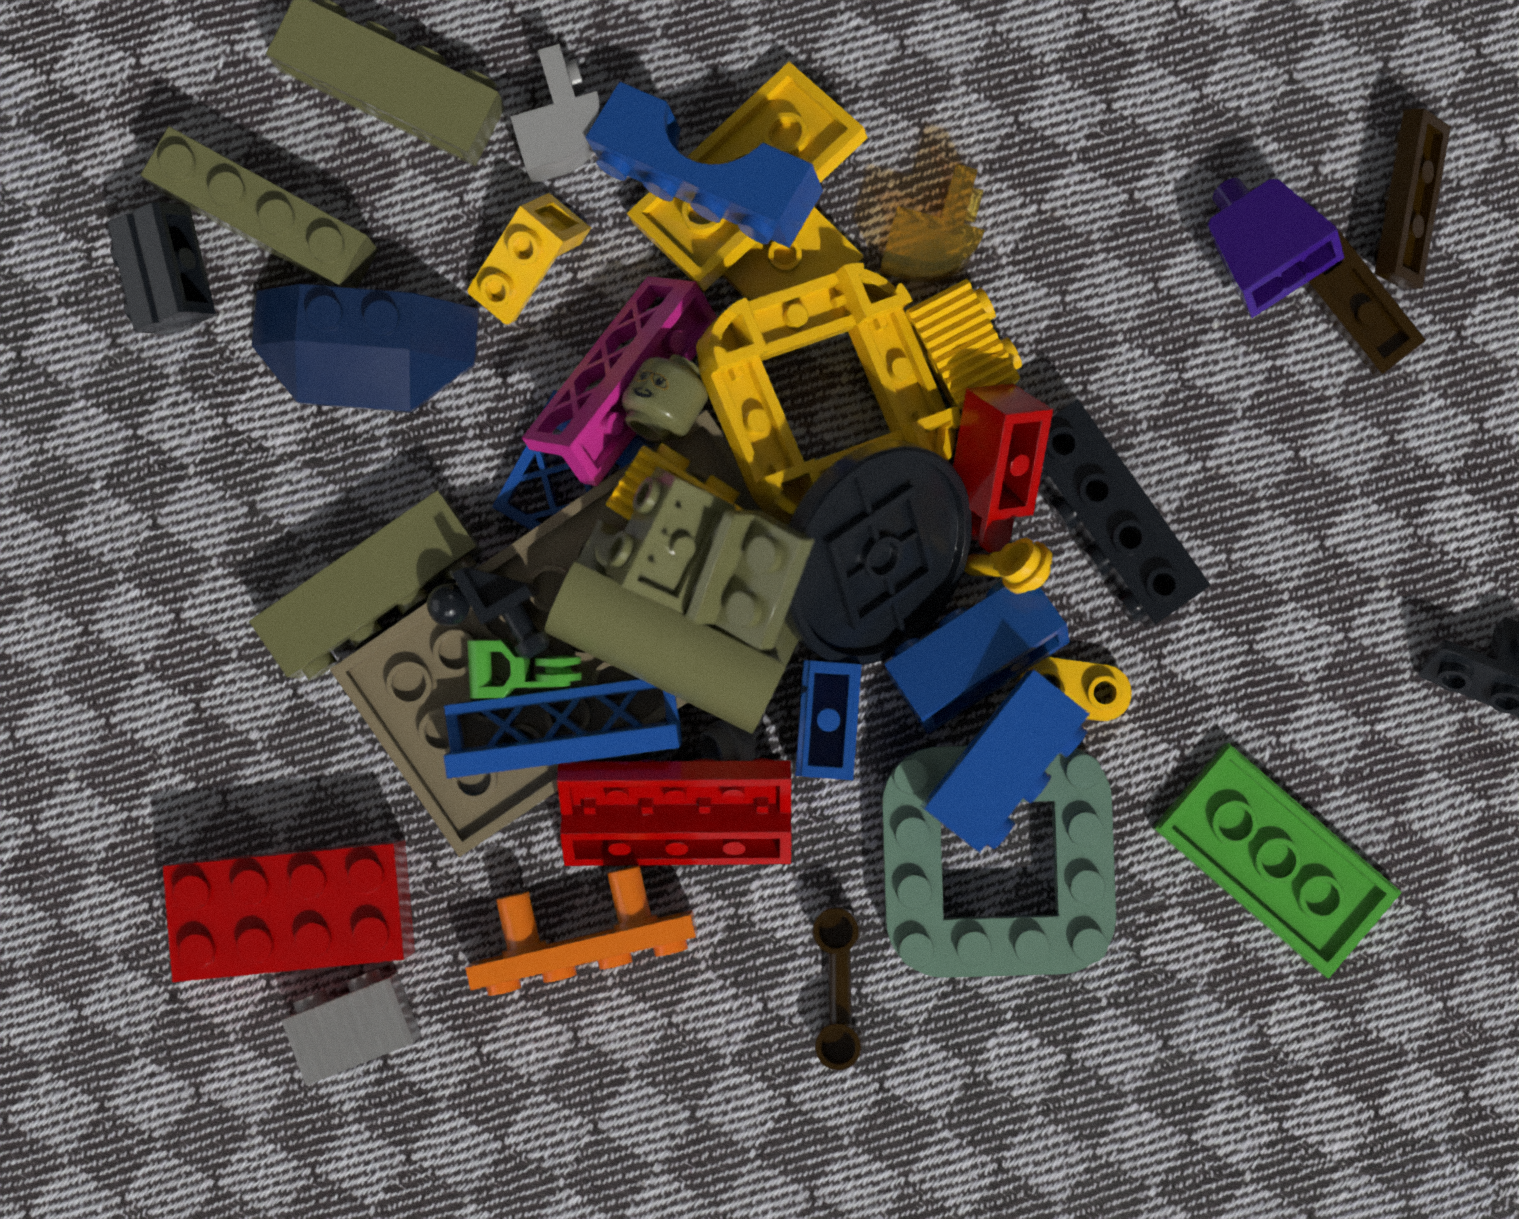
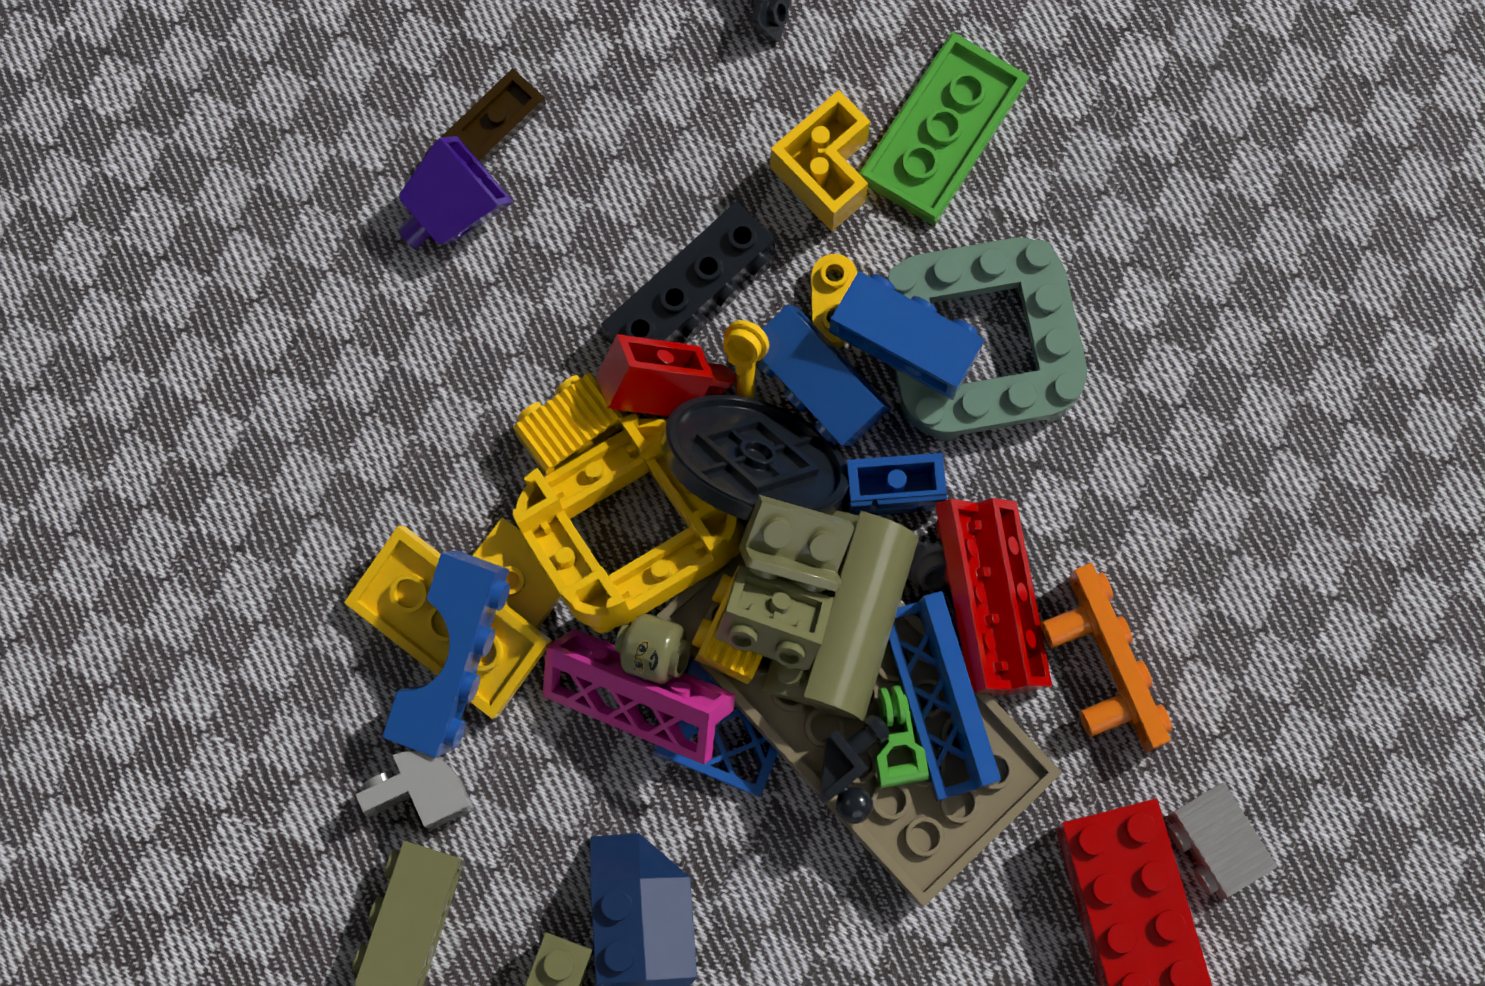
camera: 100 degrees left, 10 degrees down
(366, 587) = (846, 889): olive brick -> none
(524, 255) = (542, 799): yellow bracket -> none
(840, 1040) = (1151, 442): dark brown bar -> none
(932, 246) = (486, 457): clear yellow brick -> none
(1254, 689) = (815, 156): none -> yellow brick
(1412, 199) = (398, 94): dark brown plate -> none

